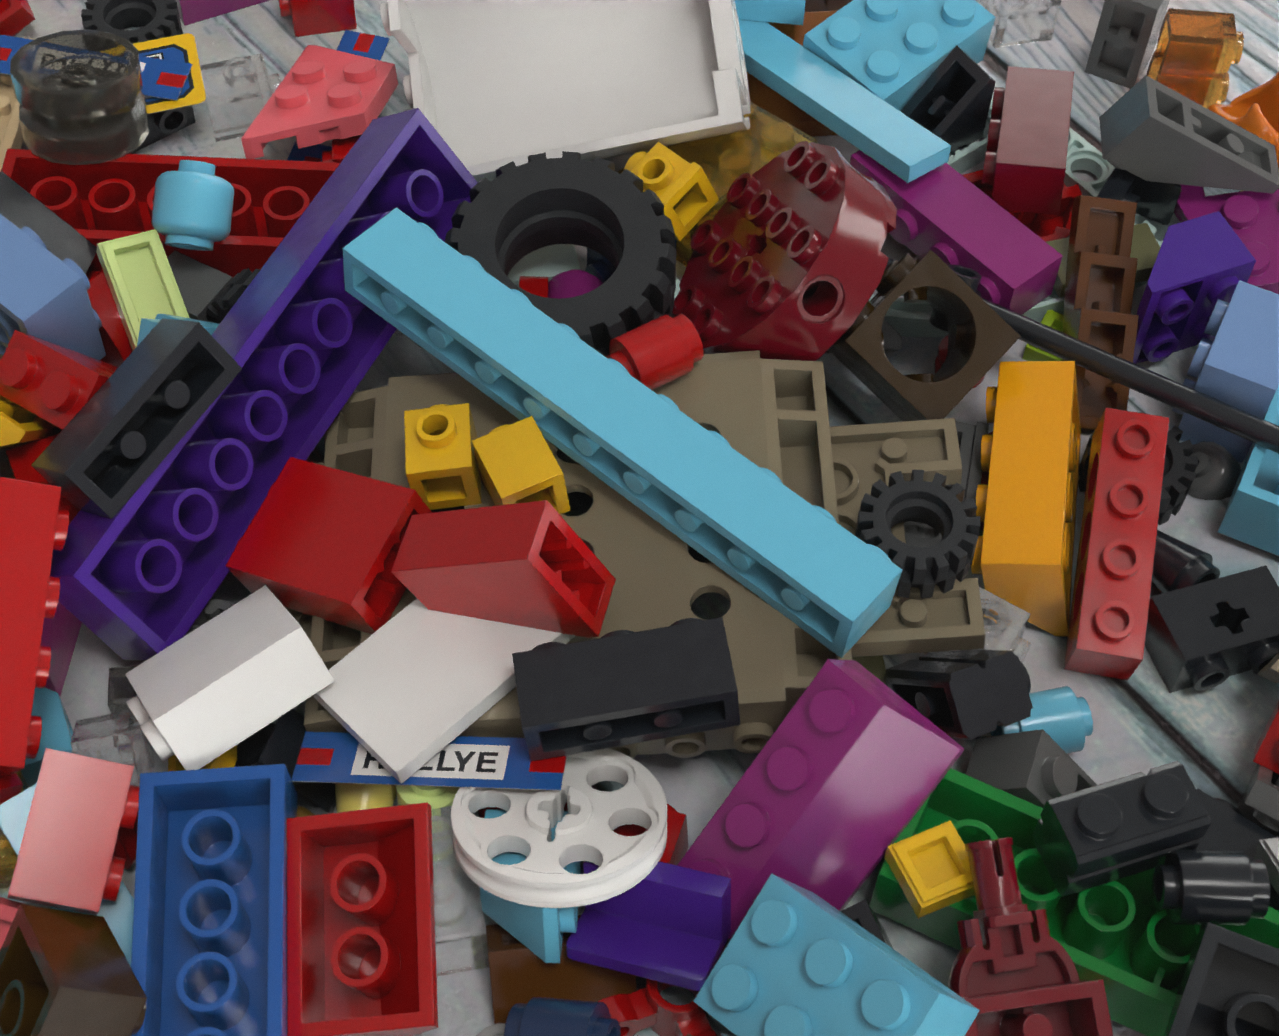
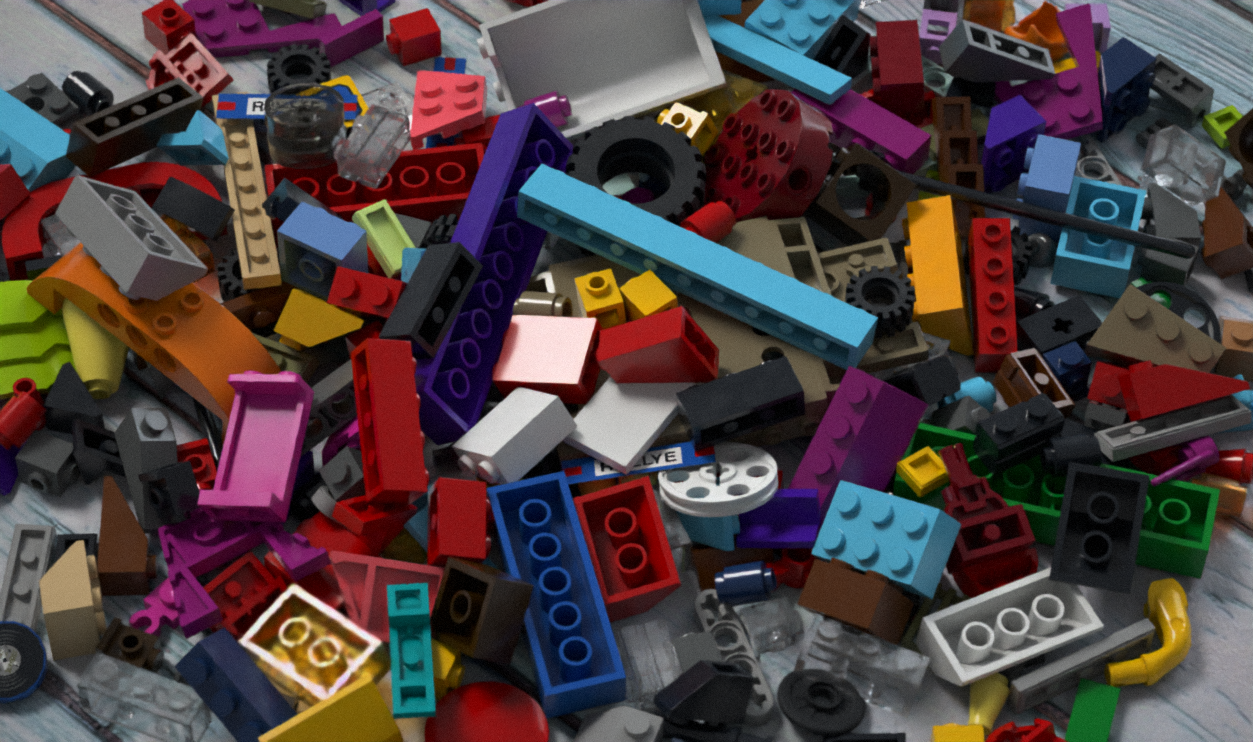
camera: 10 degrees left, 5 degrees down
(173, 128) = (372, 145): none -> clear brick
(192, 206) = (403, 182): medium azure head -> none
(350, 449) = (543, 304): none -> dark tan brick
(473, 129) = (553, 106): none -> magenta brick
(1087, 106) = (932, 39): none -> lavender brick
(1158, 721) = (1028, 375): none -> reddish brown brick
(1220, 705) = (1071, 369): none -> dark blue brick

